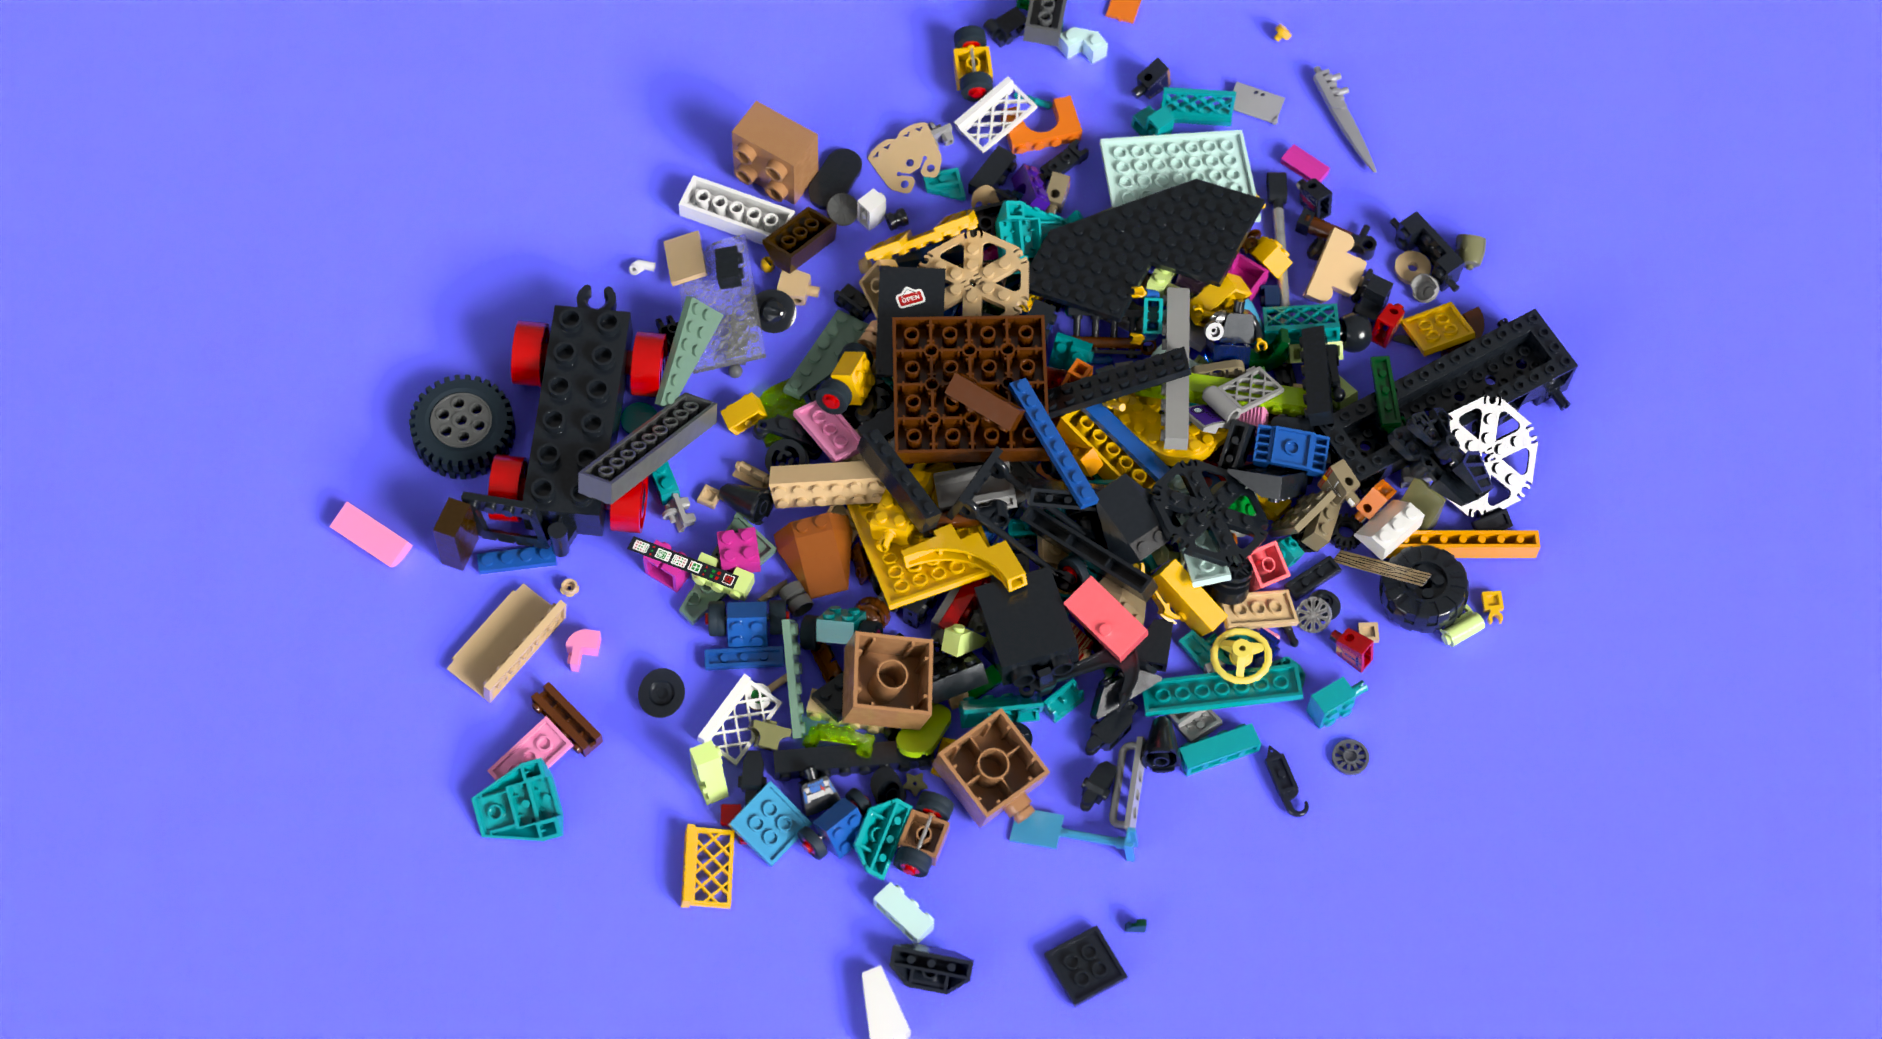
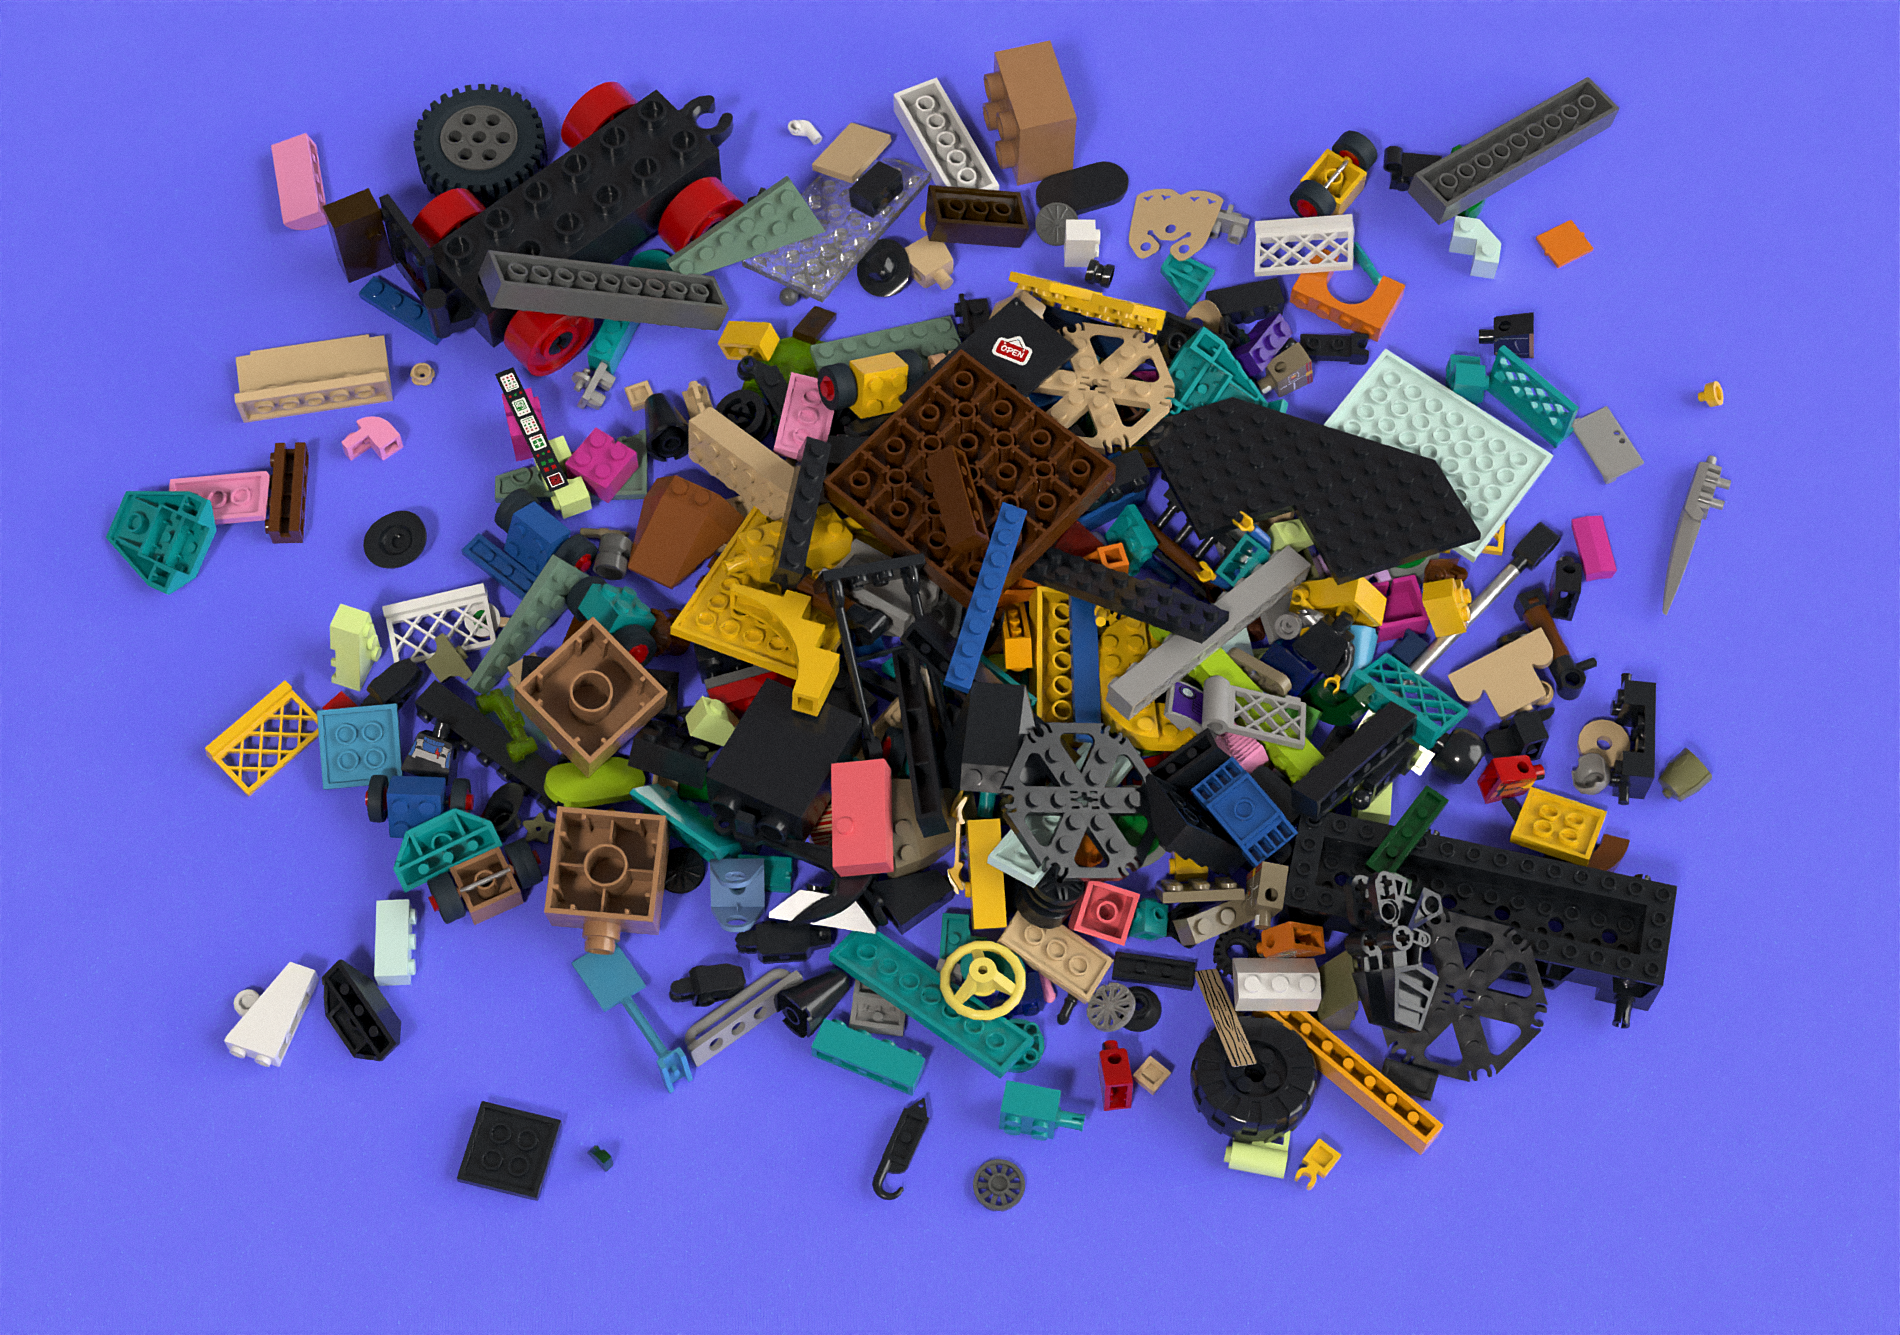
camera: 45 degrees right, 0 degrees up
(769, 375) = (814, 325): none -> dark brown tile
(856, 1018) = (245, 1000): none -> white tile
(1068, 726) = (734, 904): none -> medium blue hose

